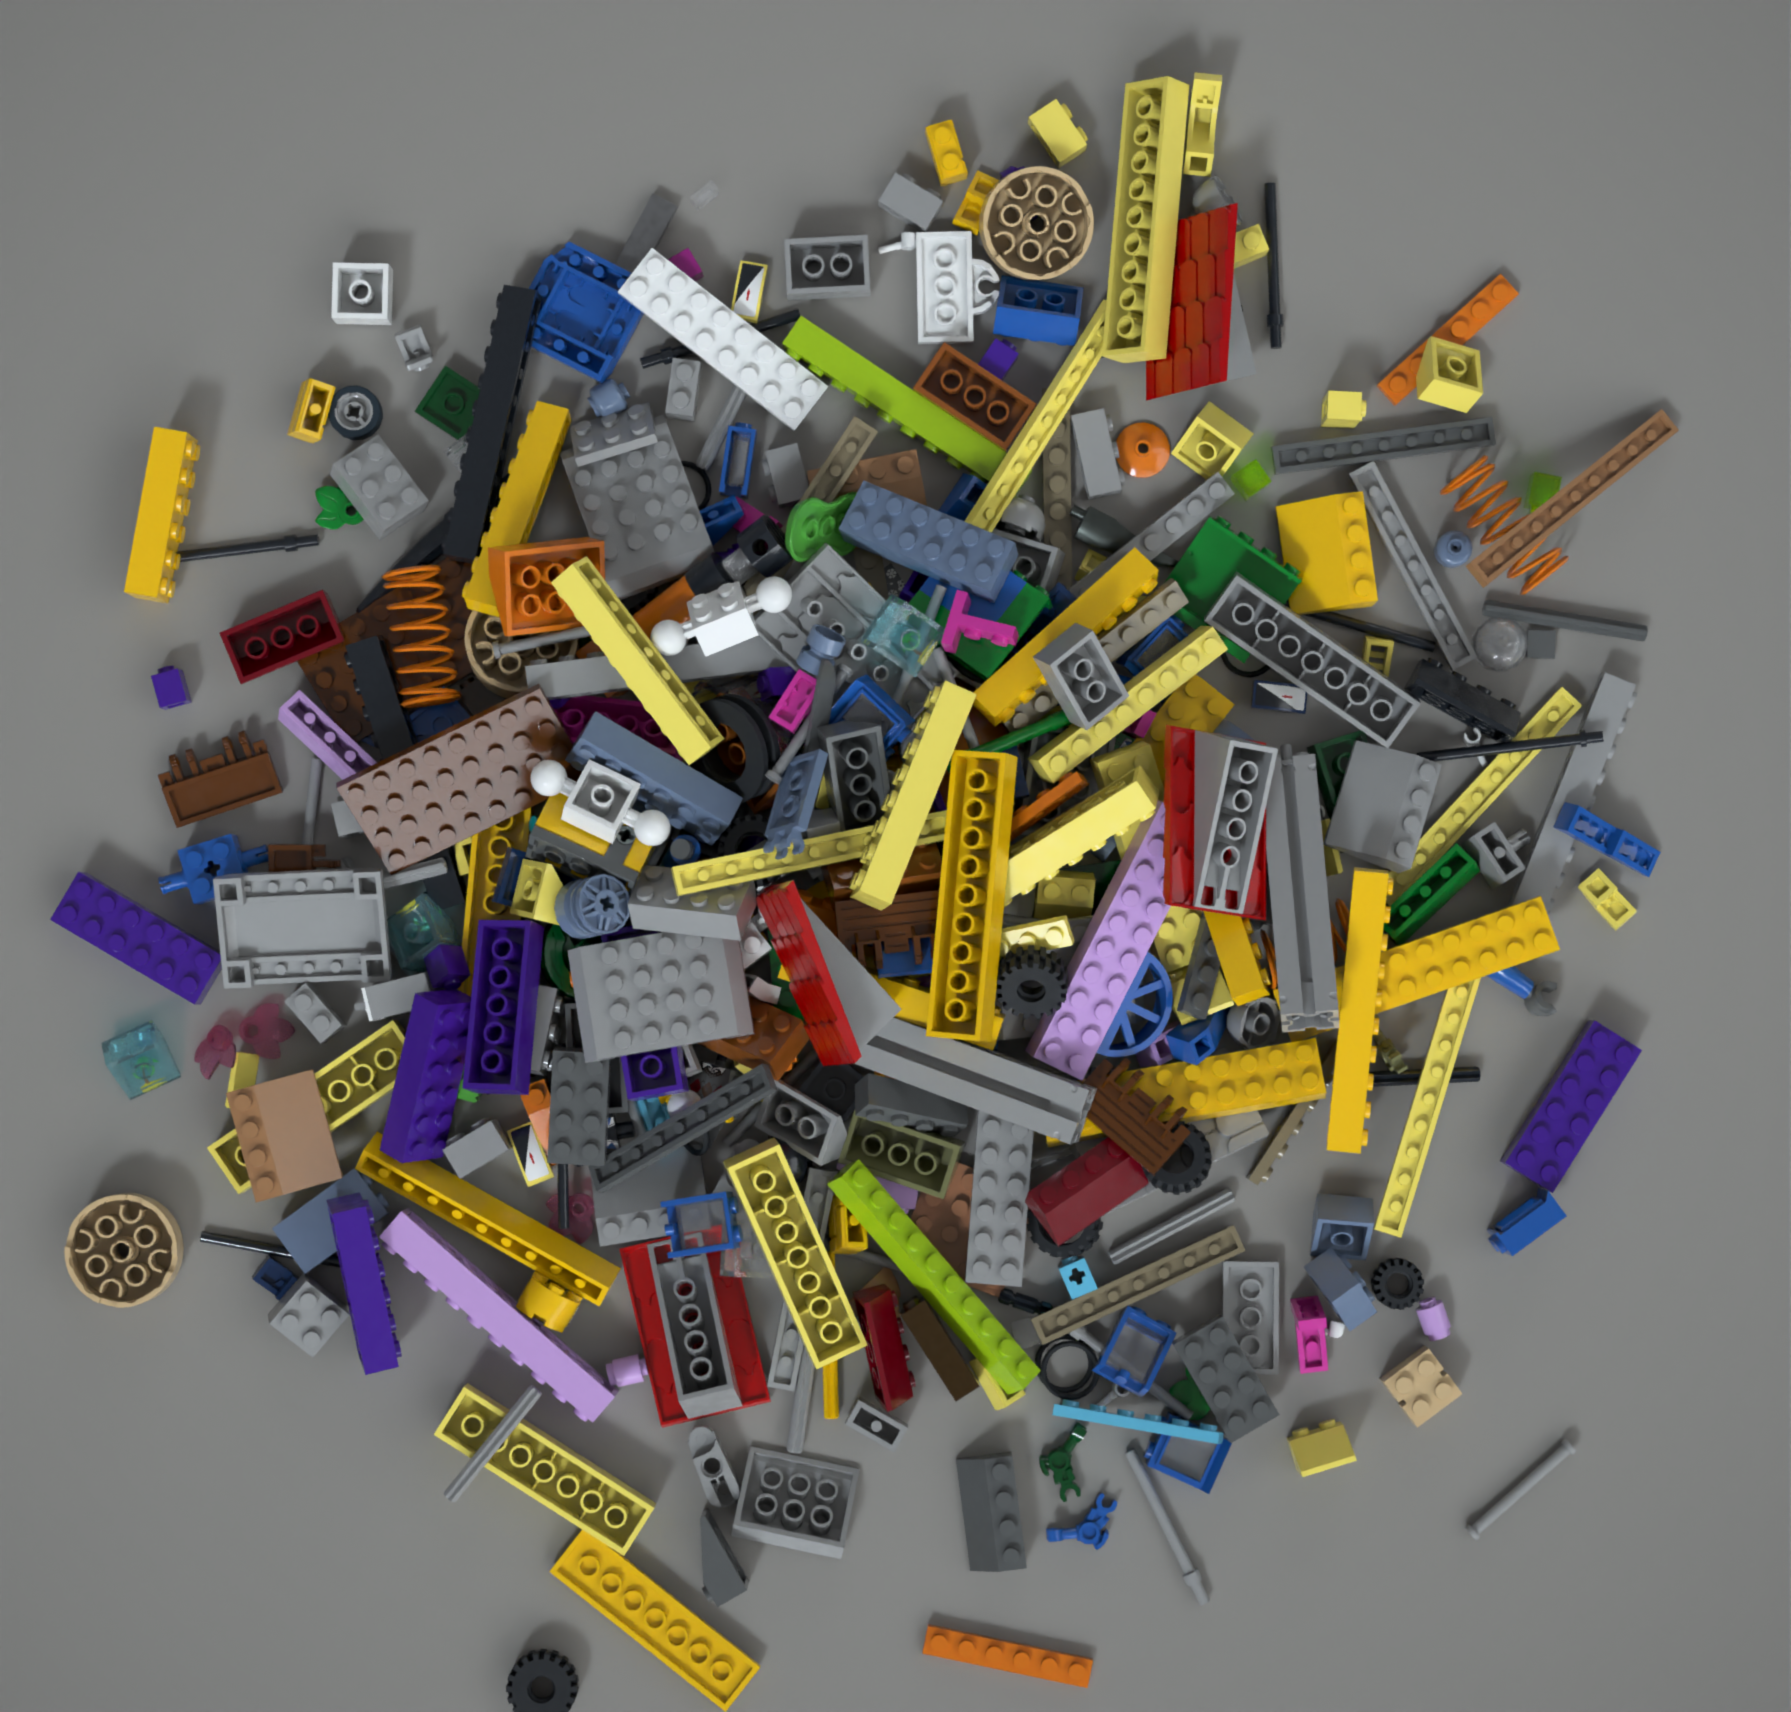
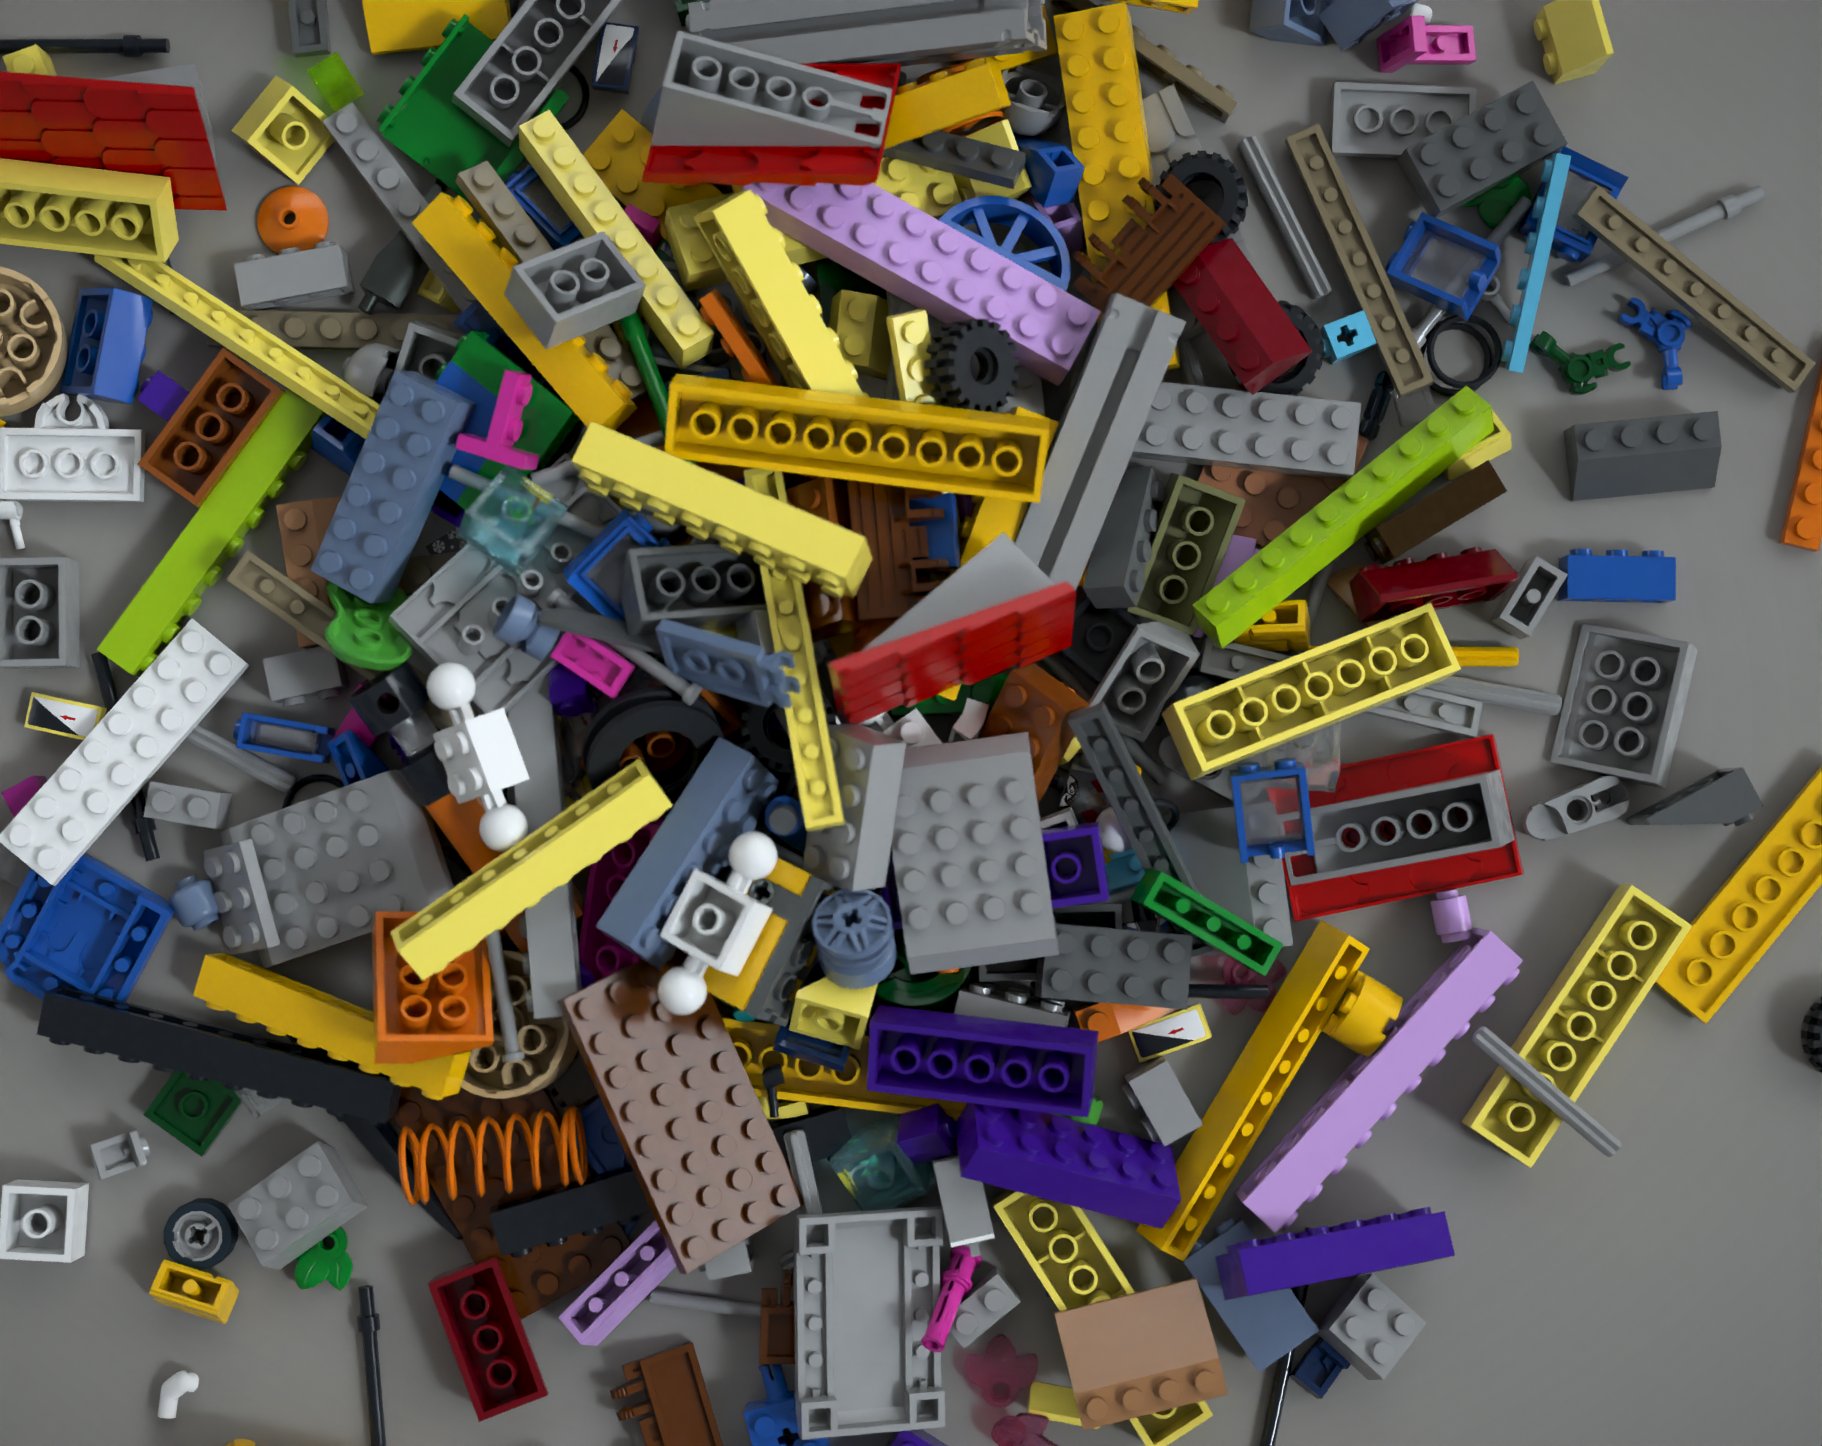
camera: 90 degrees left, 0 degrees up
(236, 396) = (173, 1389): none -> white arm
(332, 993) = (955, 1284): none -> dark pink pin
(486, 847) = (773, 1077): none -> black hand
(614, 1176) = (1206, 921): none -> green brick
(895, 1494) = (1618, 577): none -> blue brick
(1122, 1548) = (1693, 289): none -> dark tan plate

